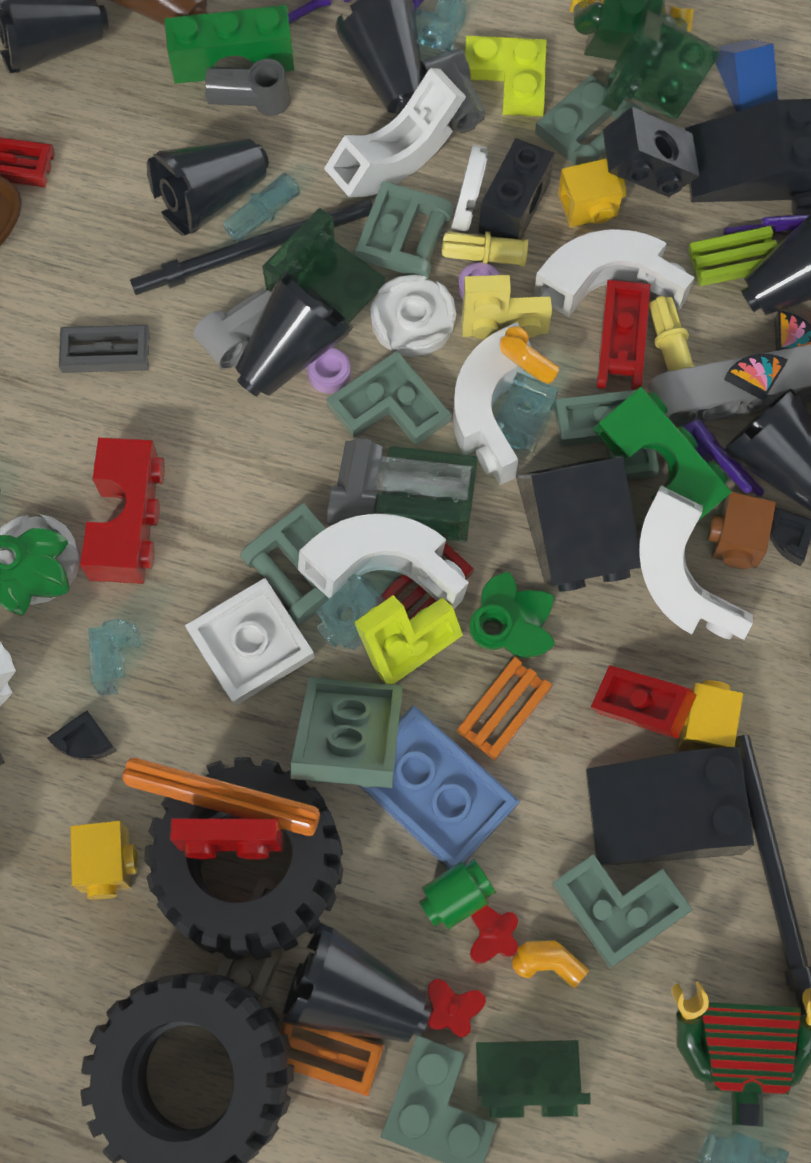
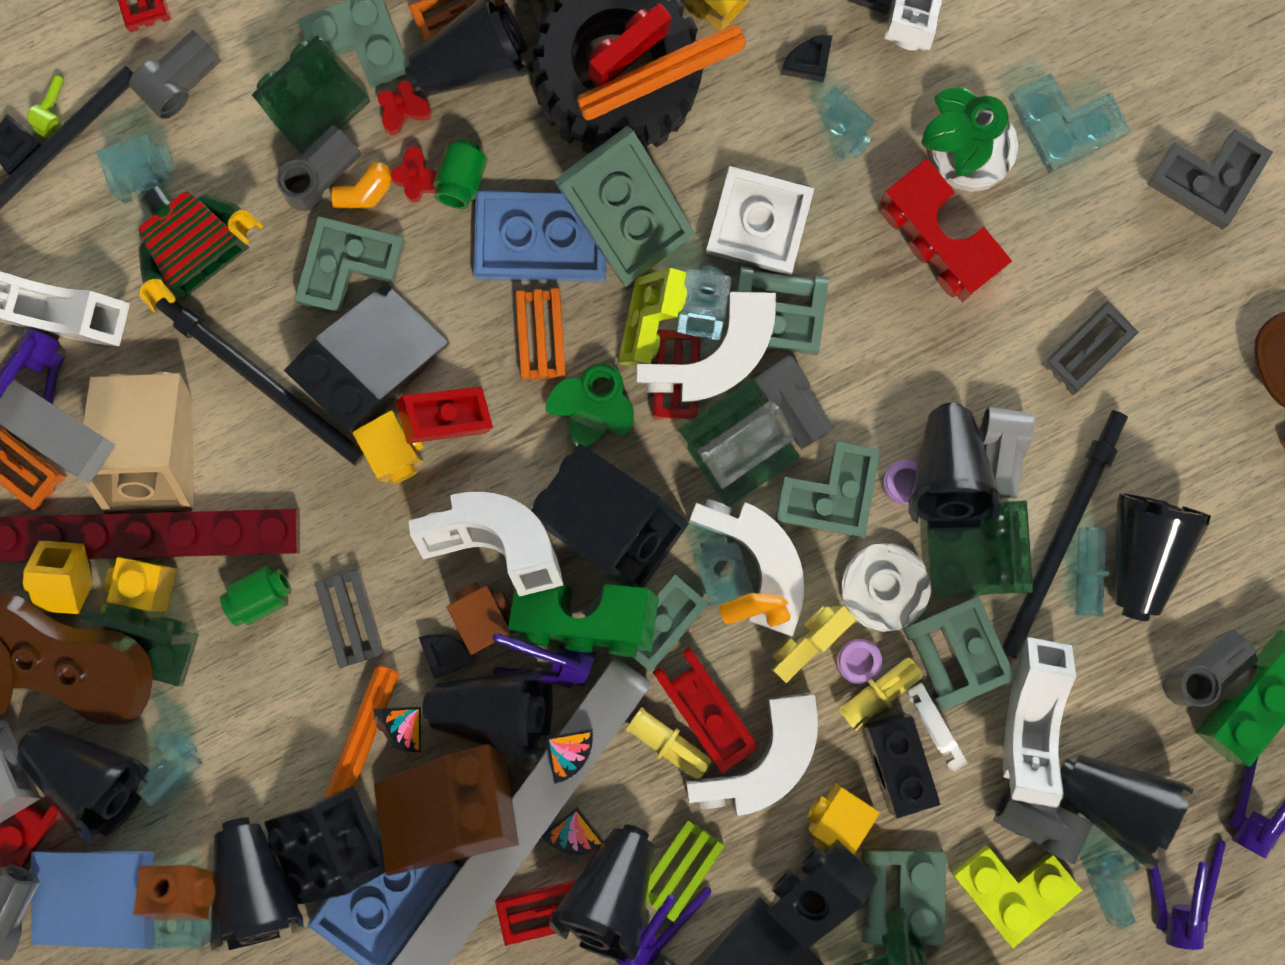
camera: 140 degrees right, 15 degrees up
(569, 1013) = (321, 165): none -> dark grey piece

